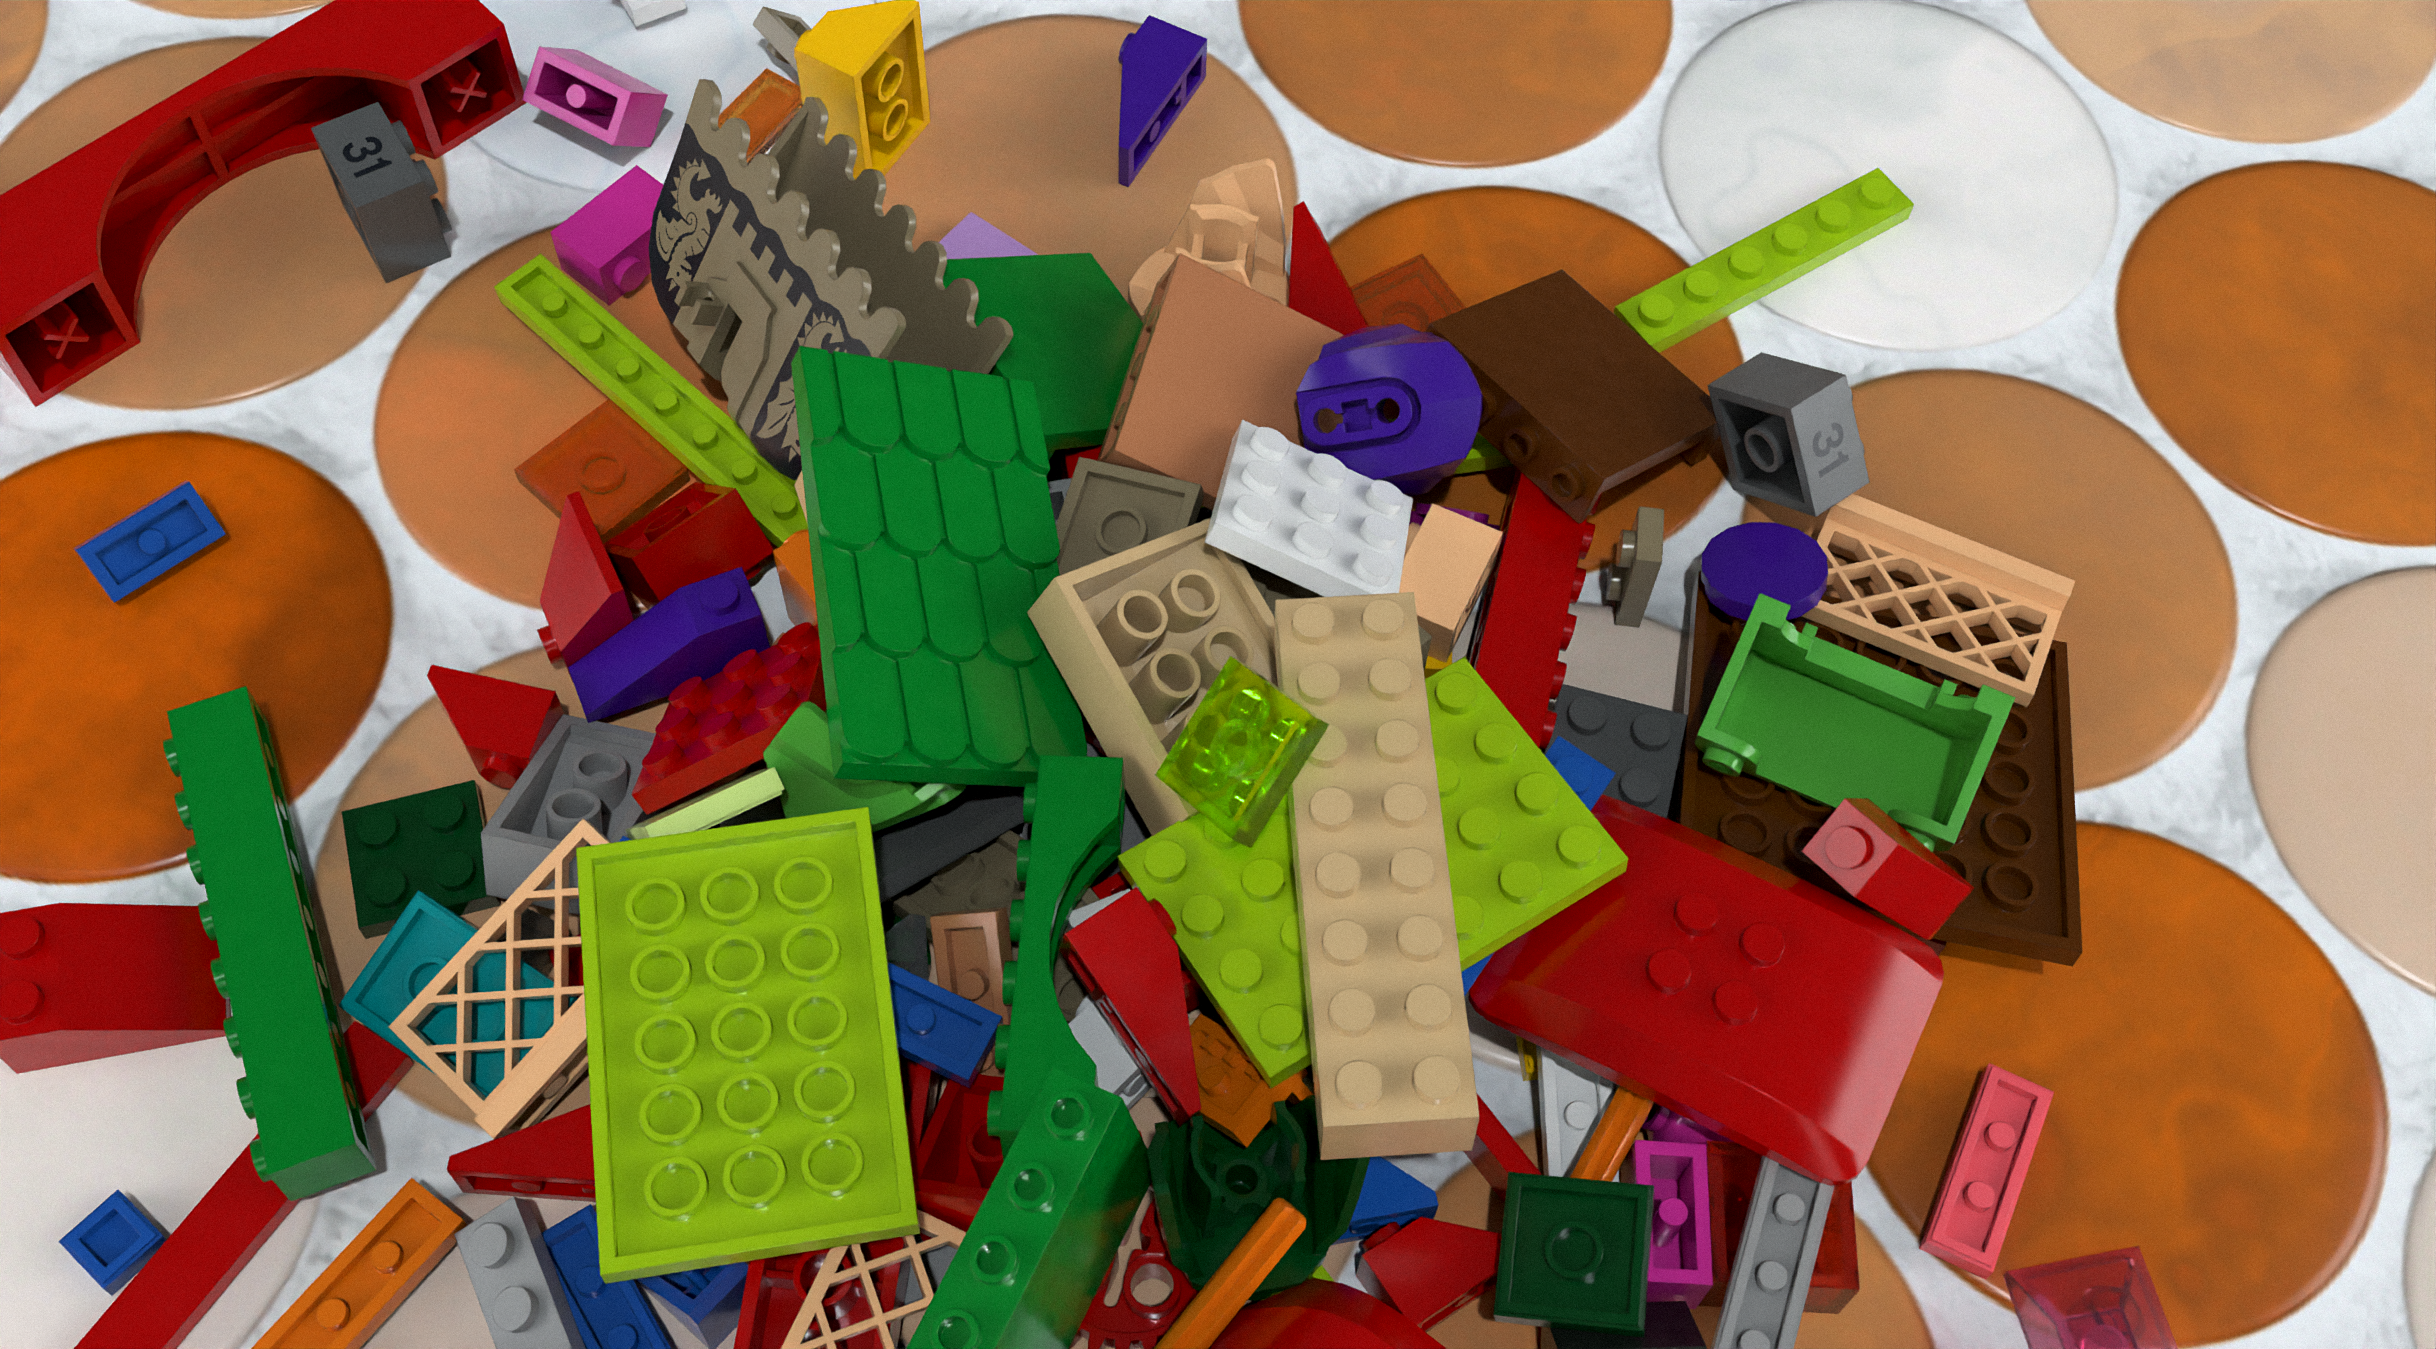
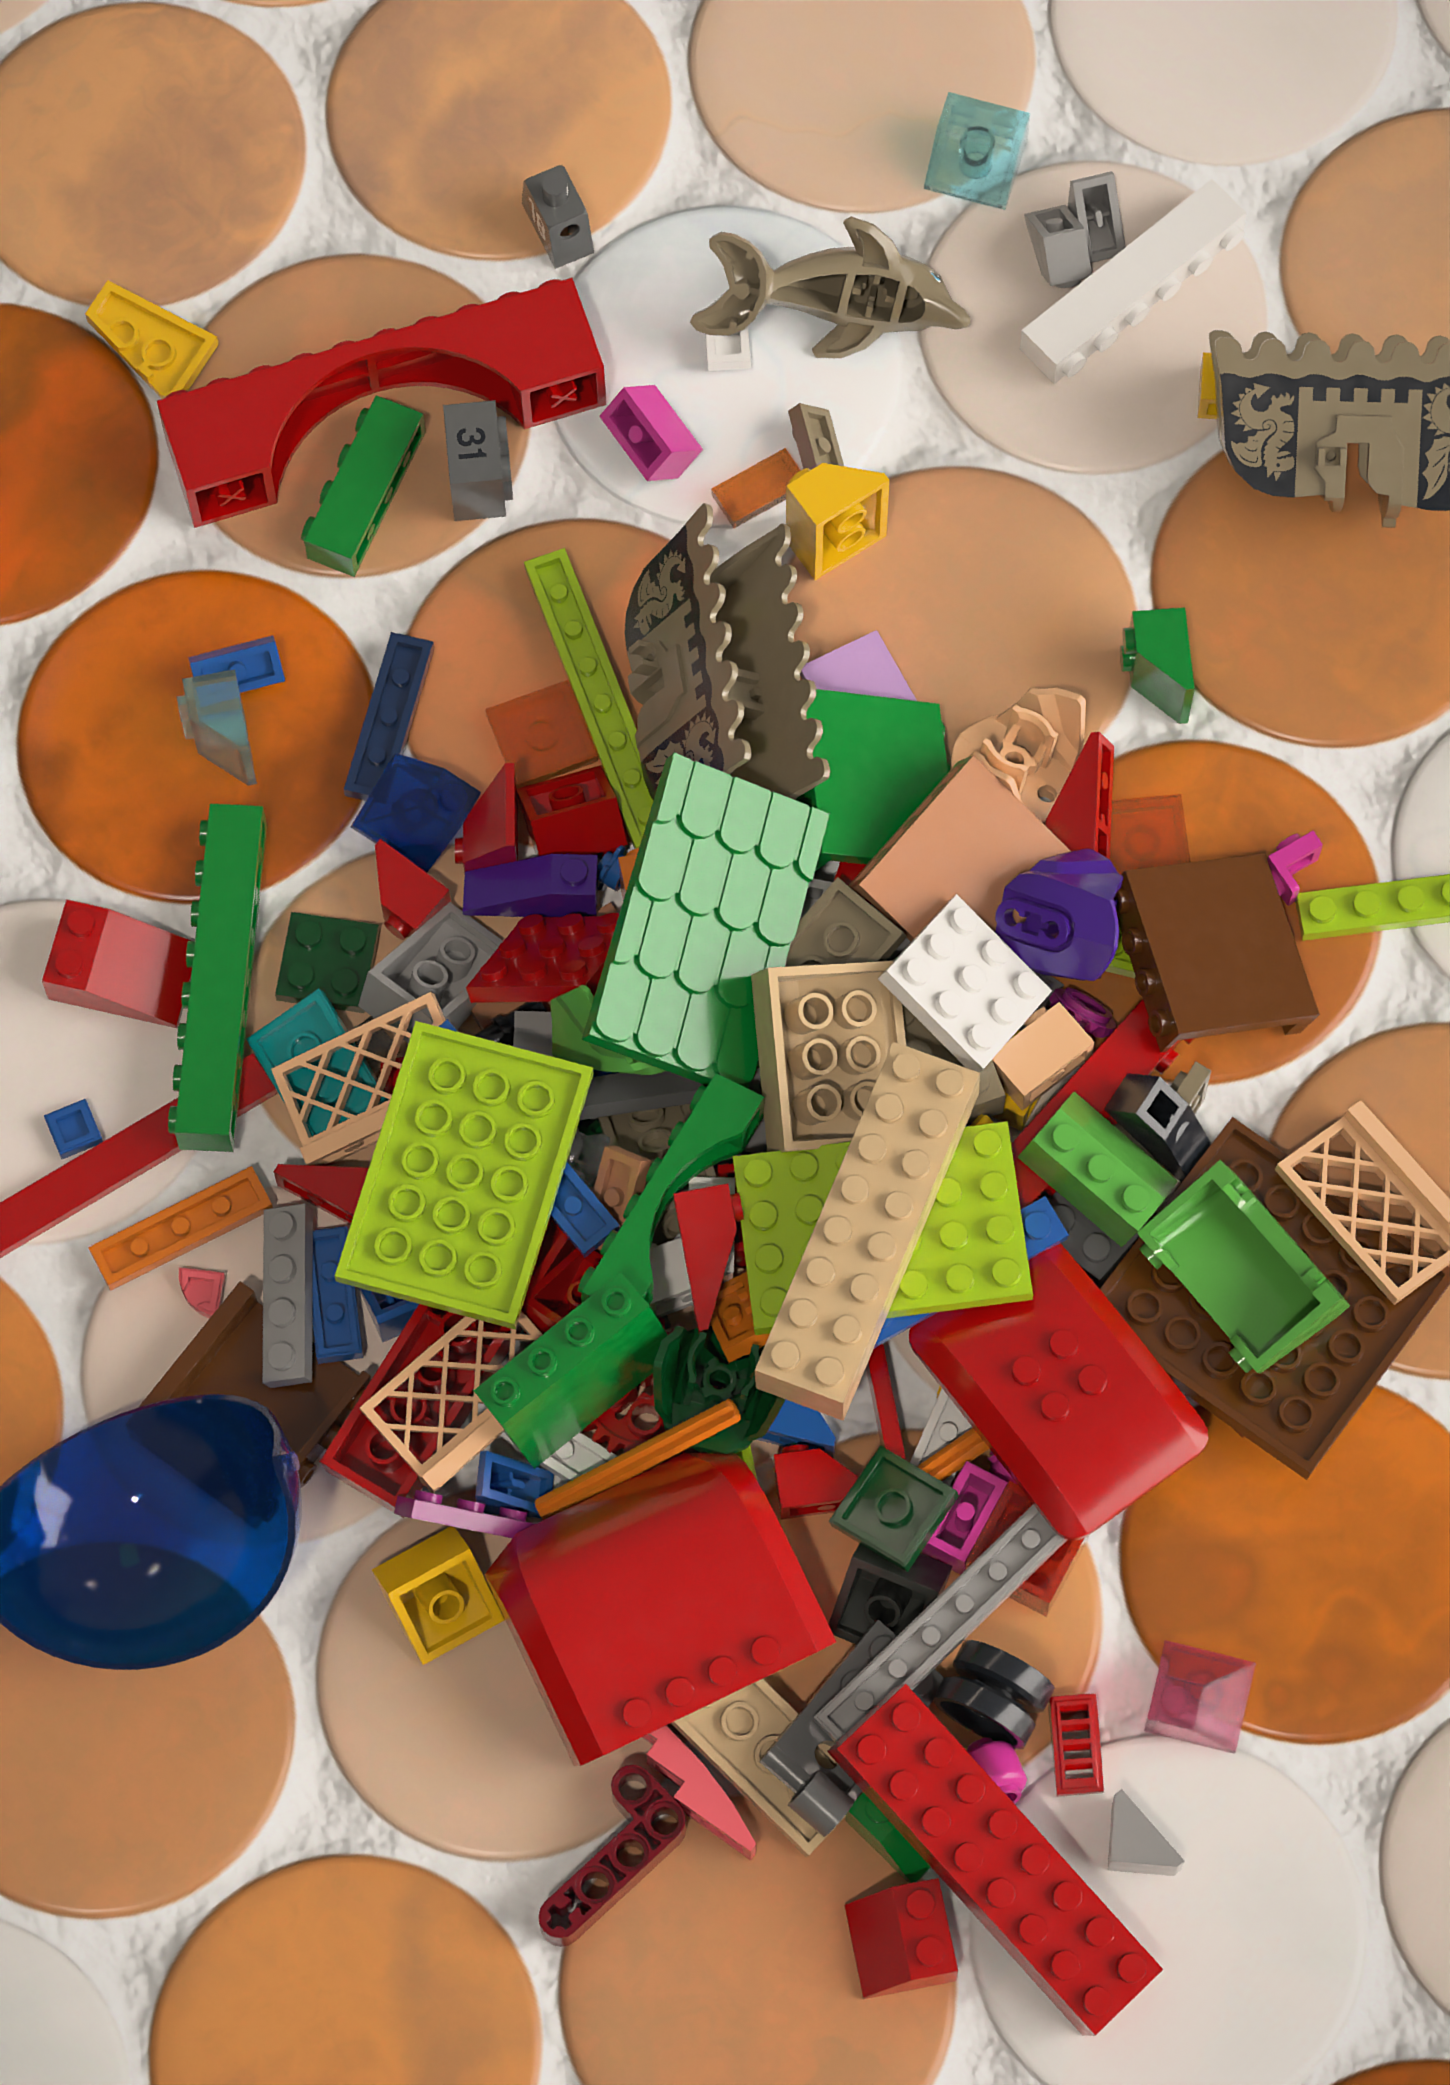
camera: 30 degrees right, 10 degrees up
(140, 606) = (217, 722): none -> clear light blue slope
(246, 278) = (363, 485): none -> green brick
(387, 528) = (389, 711): none -> dark blue plate
(468, 610) = (416, 809): none -> clear blue slope
(610, 236) = (620, 552): dark pink brick -> none
(712, 806) = (504, 1018): yellowish green tile -> none
(767, 589) = (609, 870): none -> blue plate
(1158, 80) = (1059, 573): dark purple slope -> none
(1241, 751) = (822, 1129): clear neon green plate -> none
(1328, 117) = (1160, 660): none -> green slope
(1591, 265) = (1292, 856): none -> dark pink bracket
(1599, 687) = (1098, 1169): none -> bright green slope
(1629, 597) = (1159, 1122): none -> black slope
(1765, 561) = (1268, 1137): dark purple tile -> none
(1789, 433) = (1343, 1047): dark grey brick -> none
(1887, 867) = (1204, 1365): red slope -> none
(1986, 1171) = (1191, 1577): coral tile -> none

